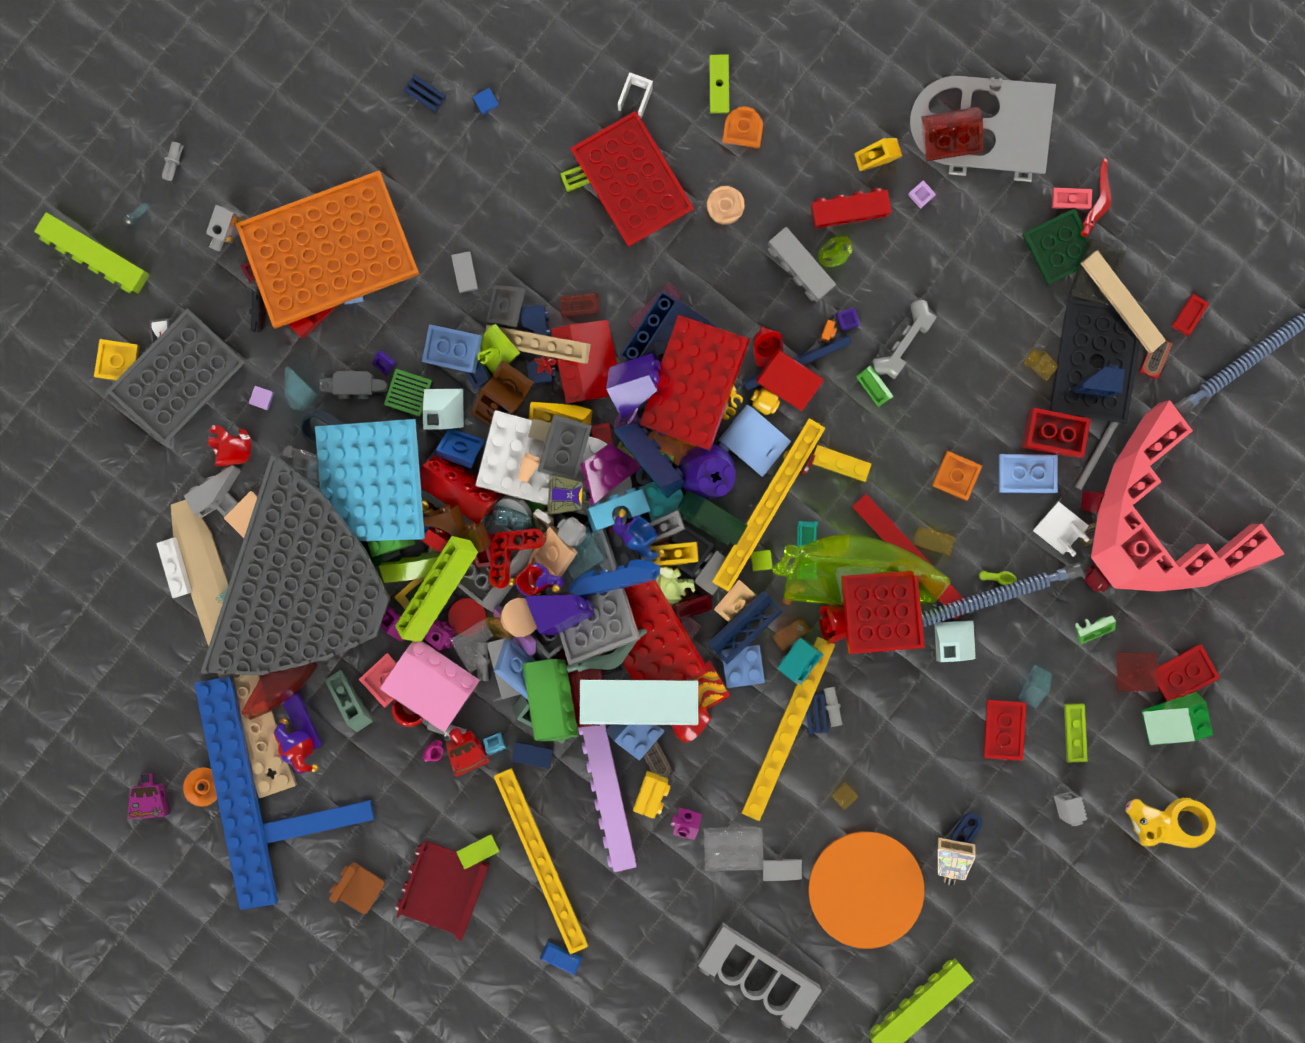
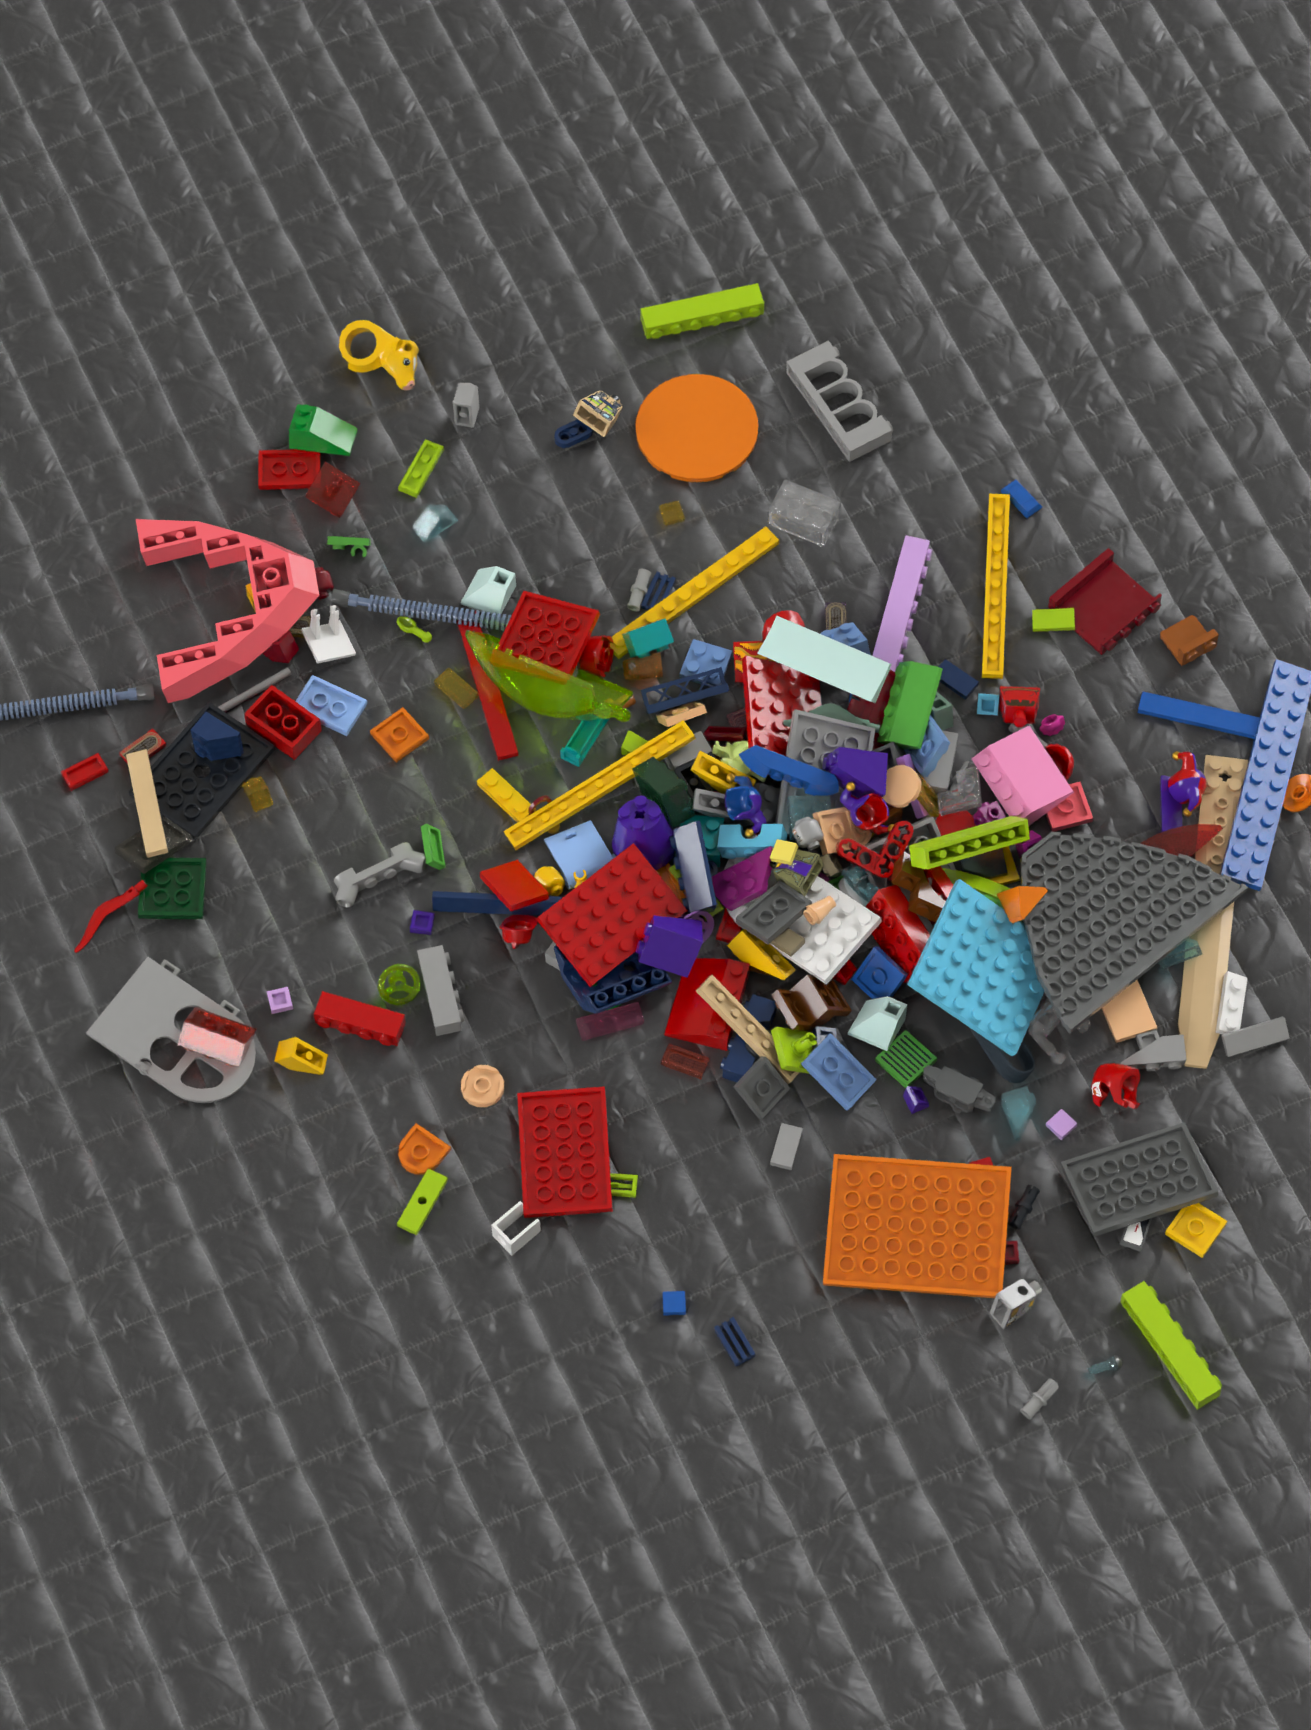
camera: 150 degrees left, 25 degrees down
(142, 548) = (1255, 1036): none -> light grey tile
(348, 701) = (1114, 804): sand green slope -> none
(364, 549) = (1020, 901): none -> orange slope
(545, 364) = (753, 1009): red plant -> none
(581, 501) = (784, 852): none -> light yellow tile
(651, 794) = (857, 591): yellow brick -> none
(686, 823) = (837, 552): magenta brick -> none
(782, 870) = (766, 475): light grey slope -> none
(829, 331) = (449, 917): orange plate -> none
(1004, 730) = (487, 498): red plate -> none
(1071, 198) = (134, 927): coral plate -> none

